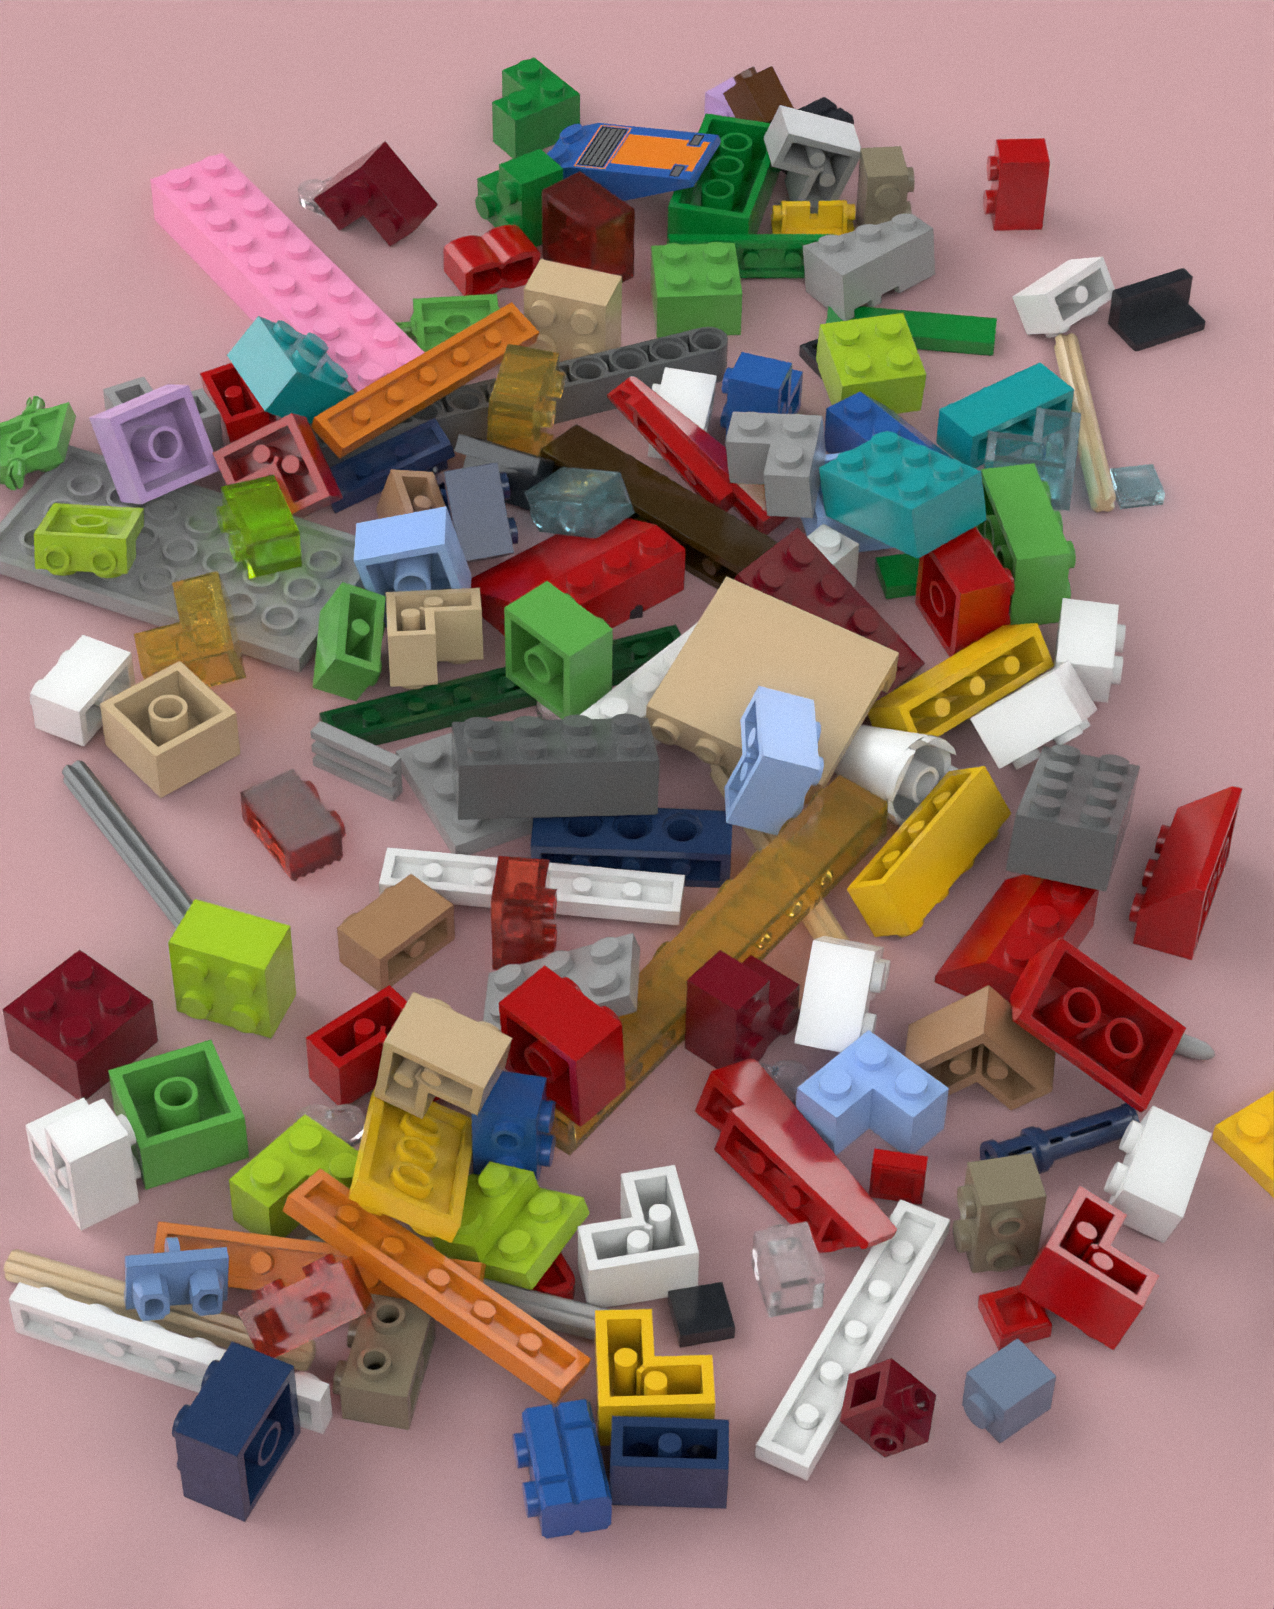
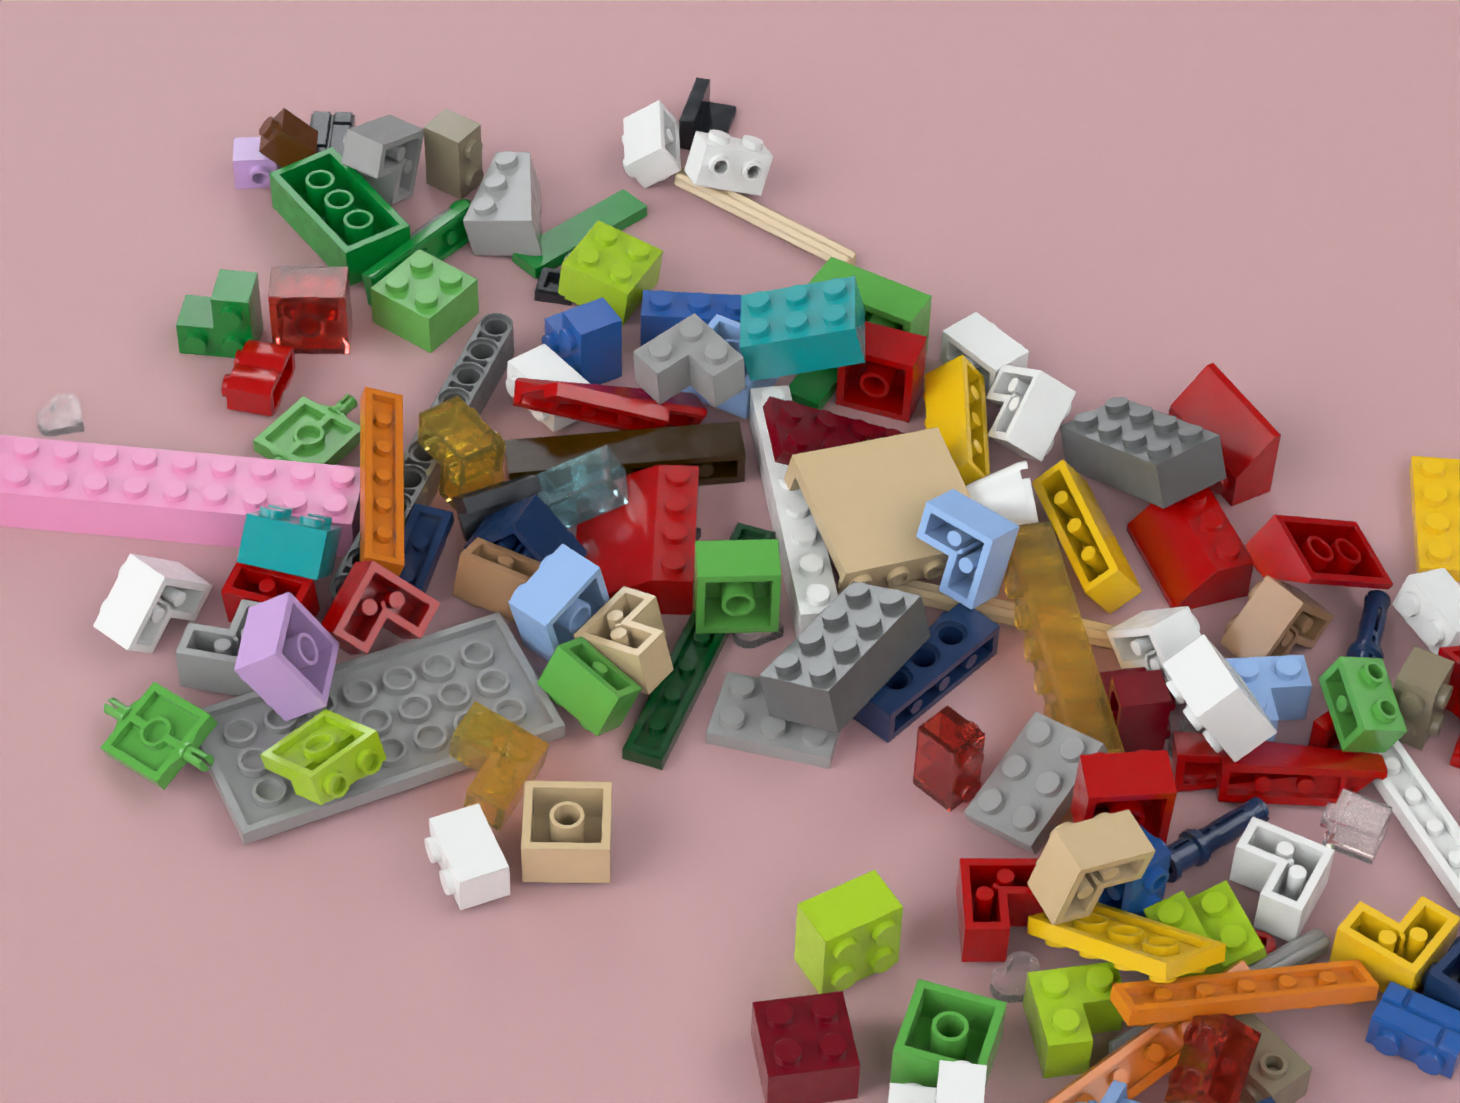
camera: 50 degrees left, 0 degrees up
(127, 841) = (661, 928): axle -> none
(161, 342) = (145, 600): none -> white brick
(259, 527) = (421, 658): clear neon green brick -> none
(293, 823) = (722, 825): clear red brick -> none
(357, 761) = (697, 756): light grey tile -> none
(381, 191) = (119, 380): dark red brick -> none
(396, 932) = (882, 833): medium nougat brick -> none
(532, 108) = (124, 249): green brick -> none
(574, 309) = (394, 361): tan brick -> none
(580, 889) = (894, 750): white plate -> none
(614, 1157) = (1196, 846): none -> dark blue pin
(634, 159) = (275, 234): slope -> none
(701, 1314) = (1345, 890): black tile -> none
(776, 1042) = (1217, 699): none -> white brick
(795, 218) = (425, 204): yellow hinge -> none
(921, 1167) = (1362, 704): none -> bright green brick
(1002, 408) = (722, 245): teal brick -> none
(1018, 184) = (523, 88): red brick -> none
(1050, 449) = (791, 252): clear light blue brick -> none
(1099, 348) = (728, 162): none -> white brick
(1137, 486) = (852, 235): clear light blue tile -> none

